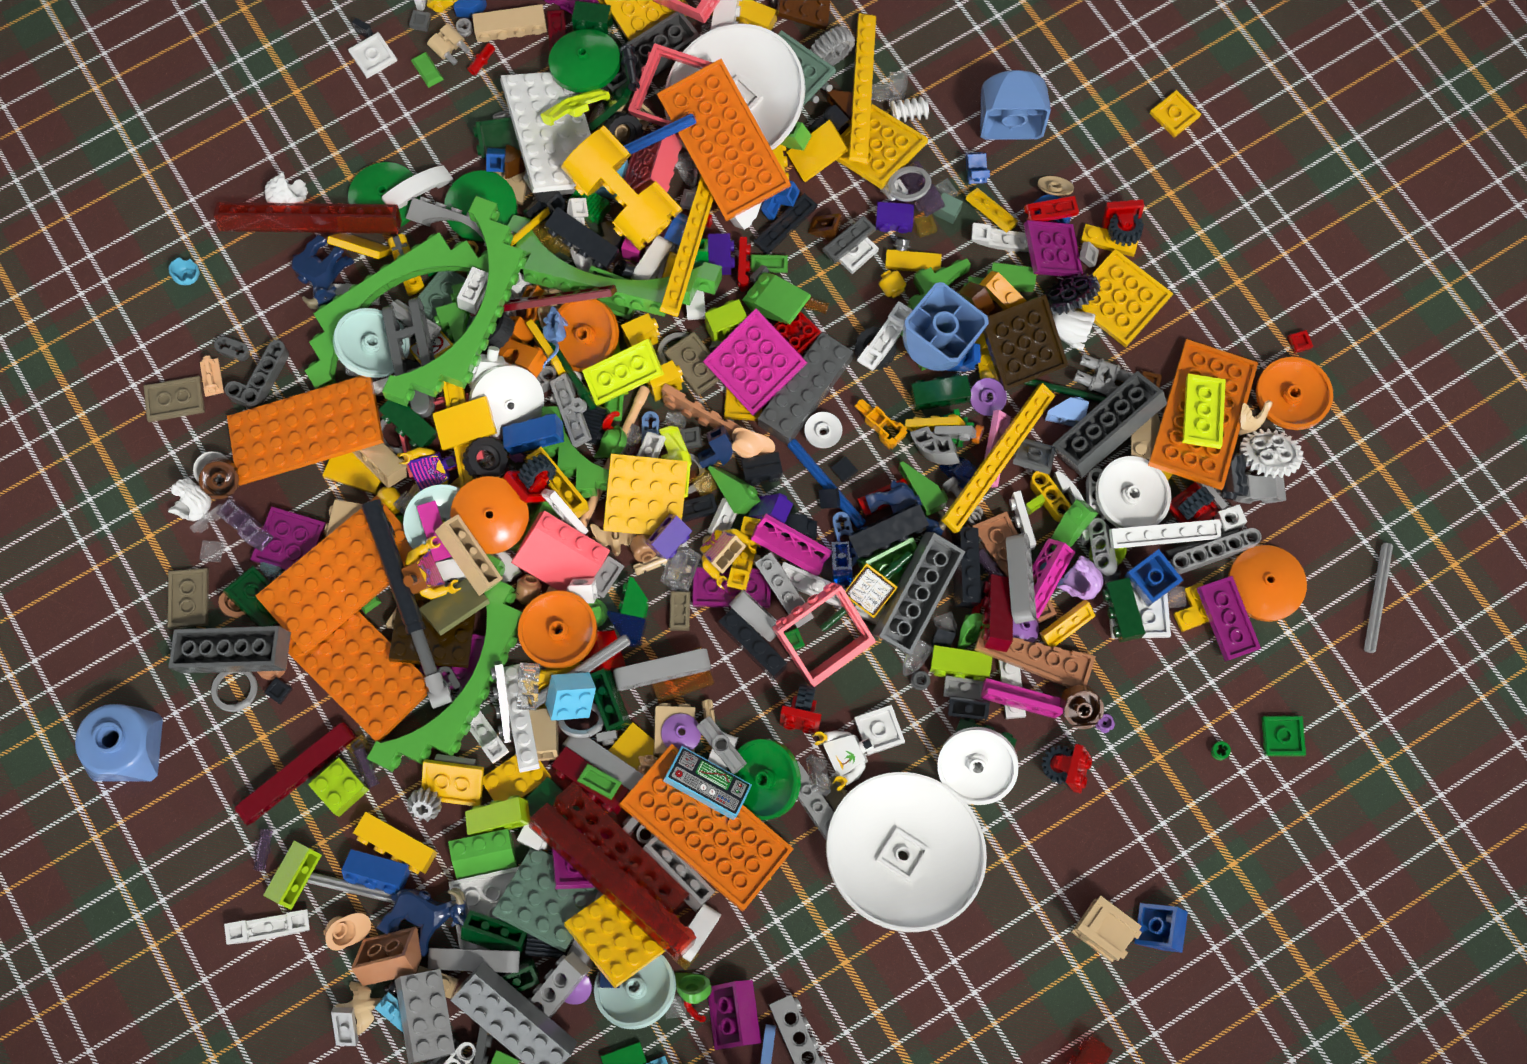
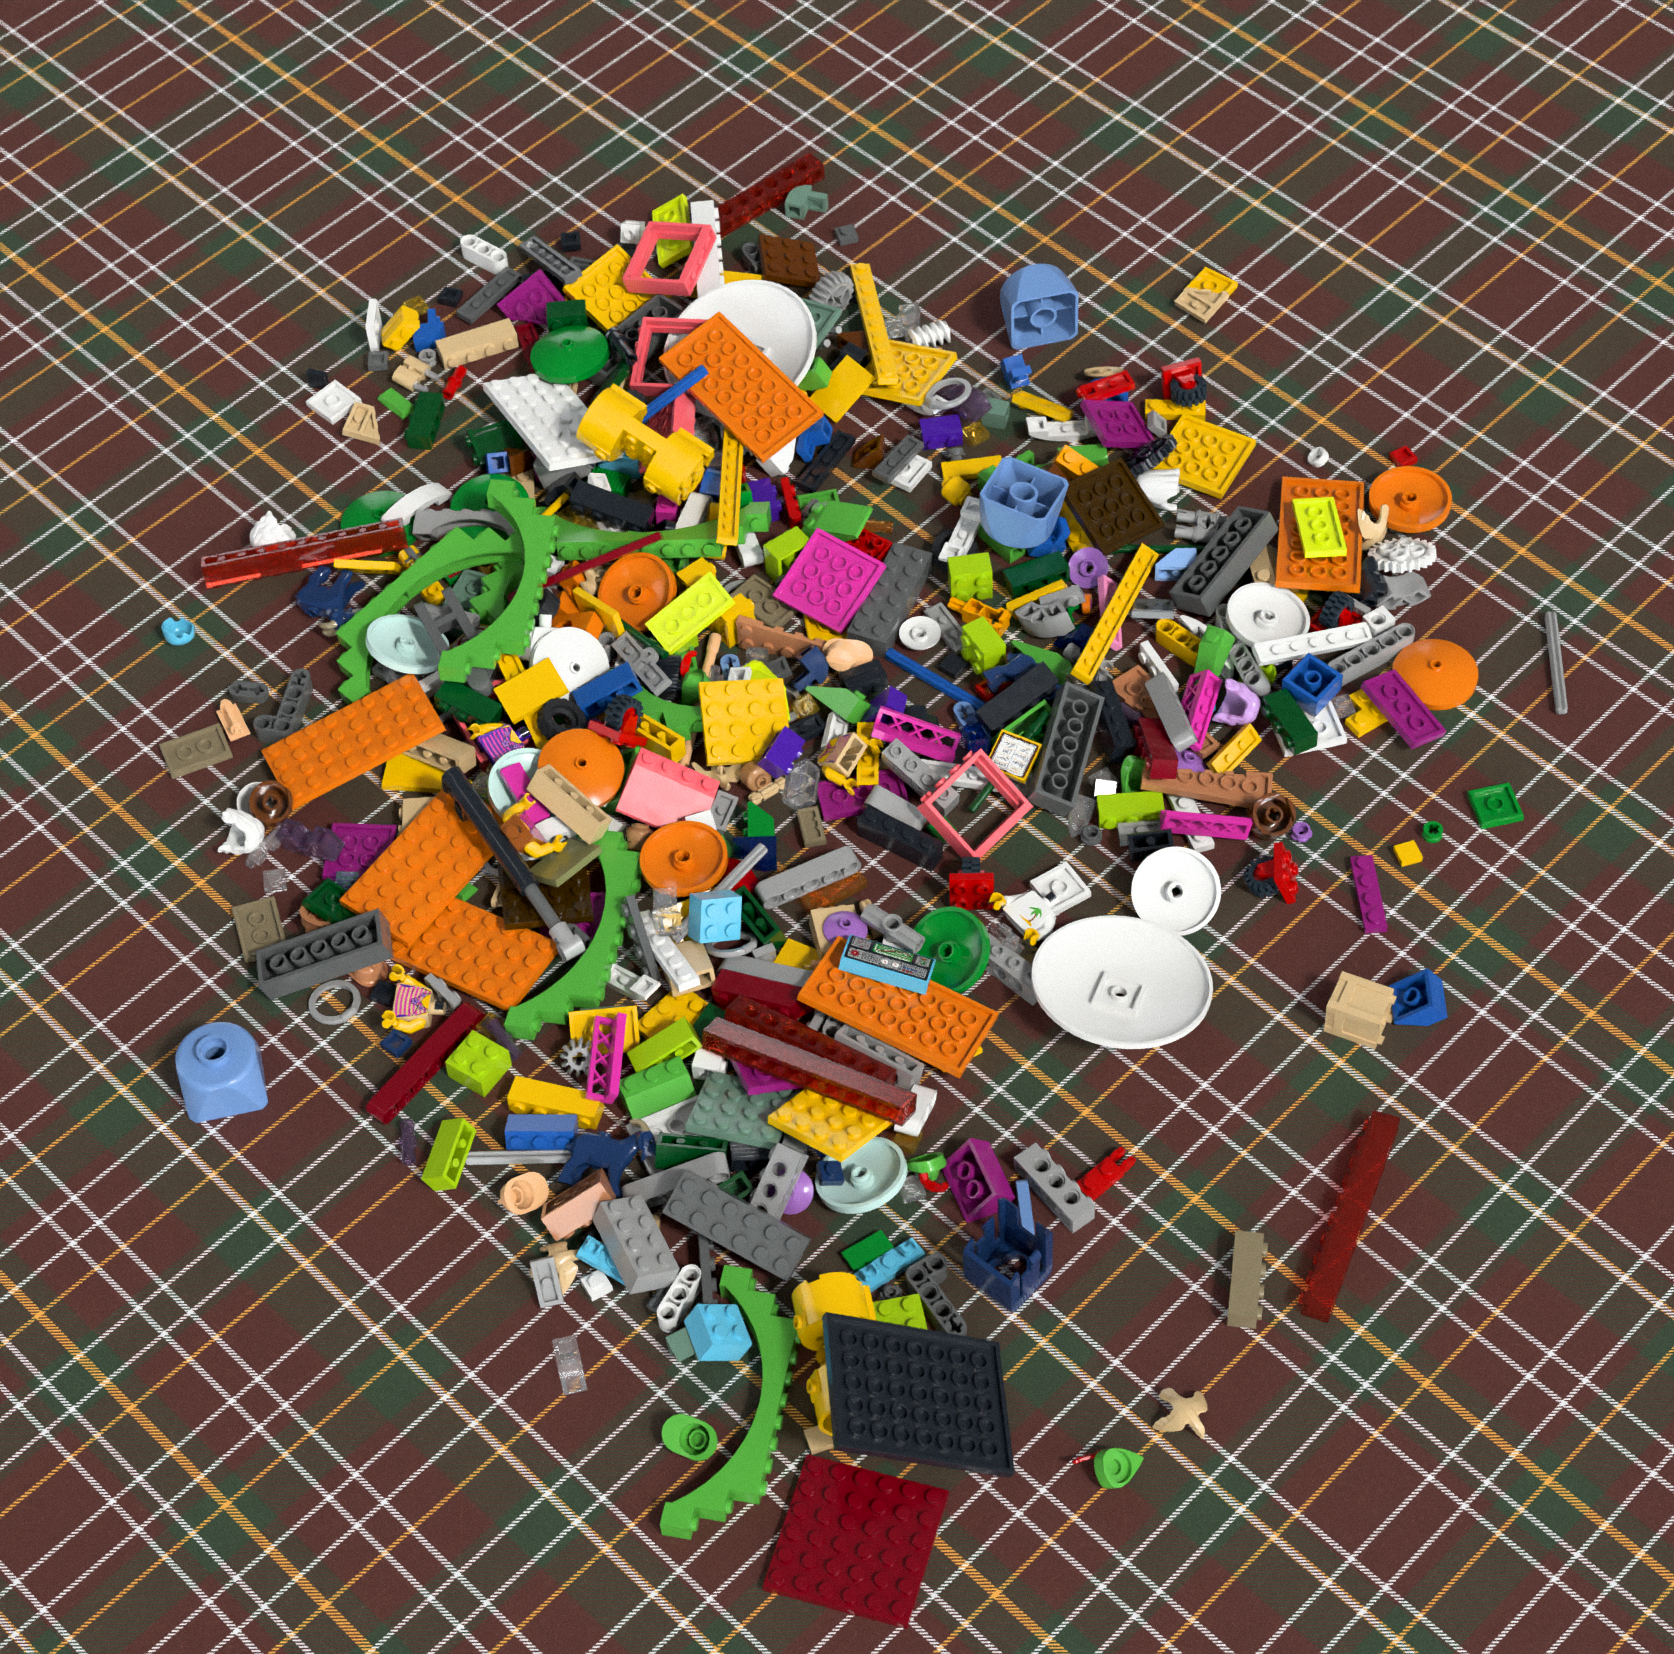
camera: 10 degrees left, 20 degrees down
(267, 927) = (434, 1214): white slope -> none
(275, 746) = (396, 1043): none -> dark blue plate
(296, 713) = (412, 1004): none -> torso
(329, 713) = (442, 993): none -> light grey plate
(388, 1033) = (596, 1285): none -> white plate
(391, 86) = (362, 424): none -> tan wing
(446, 96) = (425, 420): none -> dark green brick
(449, 825) = (614, 1058): none -> dark pink fence
(473, 290) = (508, 571): white brick -> none
(554, 330) = (605, 591): medium blue animal -> none
(563, 510) = (657, 744): white tile -> none
(573, 105) = (571, 392): neon yellow plate -> none
(599, 781) = (769, 985): bright green tile -> none
(829, 498) = (944, 691): black tile -> none
(842, 1035) = (1105, 1174): none -> red hinge
(850, 429) = (950, 629): none -> light grey tile
(873, 464) = (982, 646): none -> lime brick
(880, 385) = (970, 576): none -> lime brick
(1035, 504) = (1167, 651): lime tile -> none
(1147, 801) = (1368, 894): none -> magenta plate
(1162, 130) = (1201, 303): none -> tan wing
(1193, 767) = (1407, 853): none -> yellow tile
(1224, 324) = (1318, 457): none -> white tile

